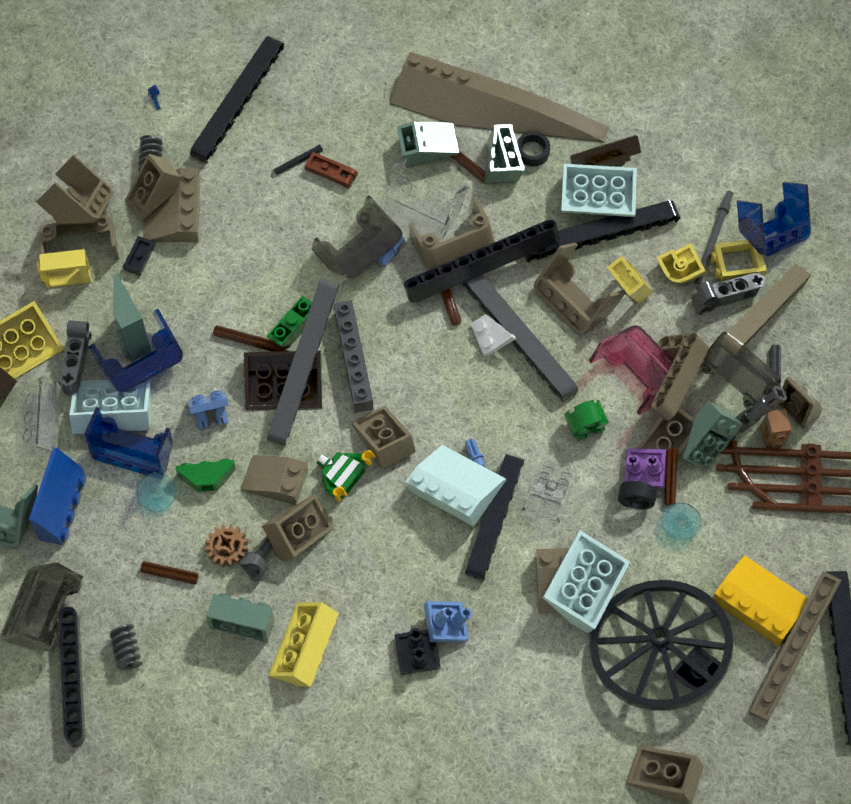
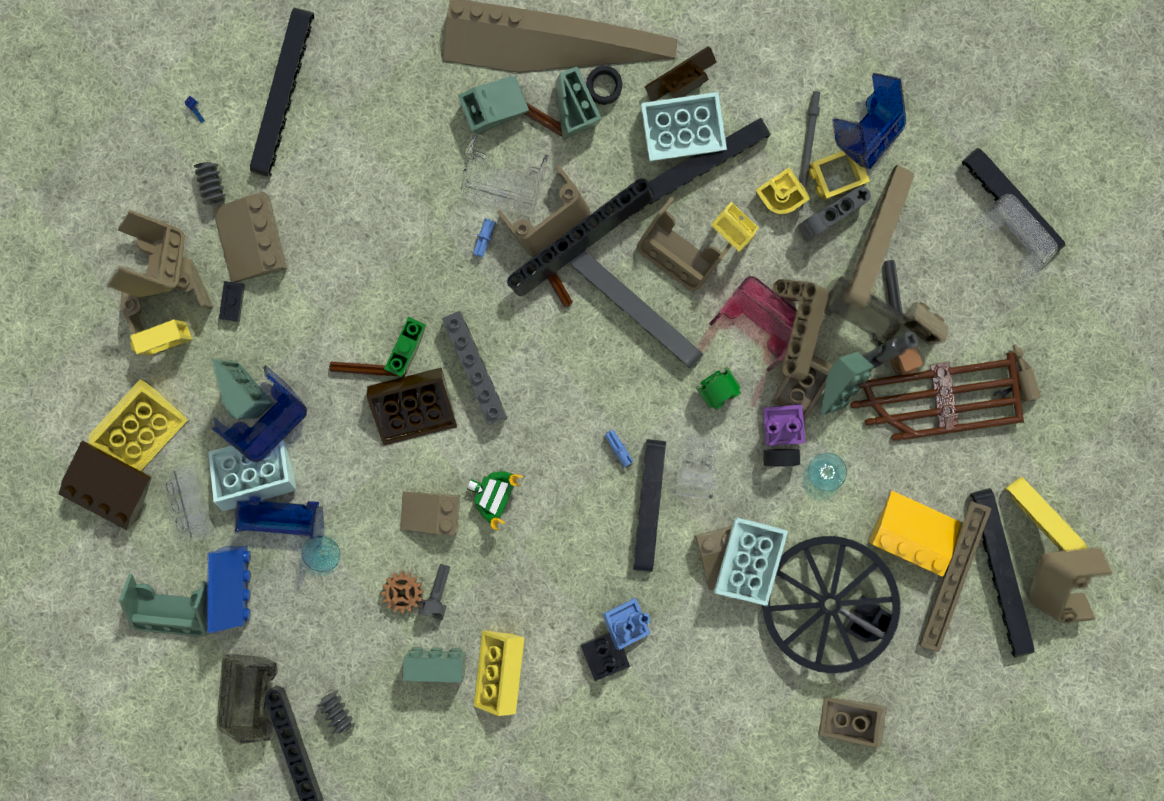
camera: 10 degrees left, 25 degrees up
(78, 339) = (198, 410): dark grey piece -> none
(152, 185) = (222, 223): dark tan slope -> none
(169, 572) = (355, 628): reddish brown axle -> none
(200, 404) = (345, 453): medium blue plate -> none
(206, 474) = (364, 525): green slope -> none
(293, 162) = (363, 151): black bar -> none
(297, 527) = (465, 563): dark tan slope -> none
(303, 362) = (428, 393): dark grey beam -> none
(330, 169) = (400, 156): copper plate -> none
(364, 249) = (456, 246): clear smoke windscreen -> none
(384, 436) = (524, 446): dark tan slope -> none
(455, 484) = (605, 484): light aqua slope -> none
(490, 335) = (605, 313): white wing -> none
(670, 476) = (810, 430): reddish brown axle -> none

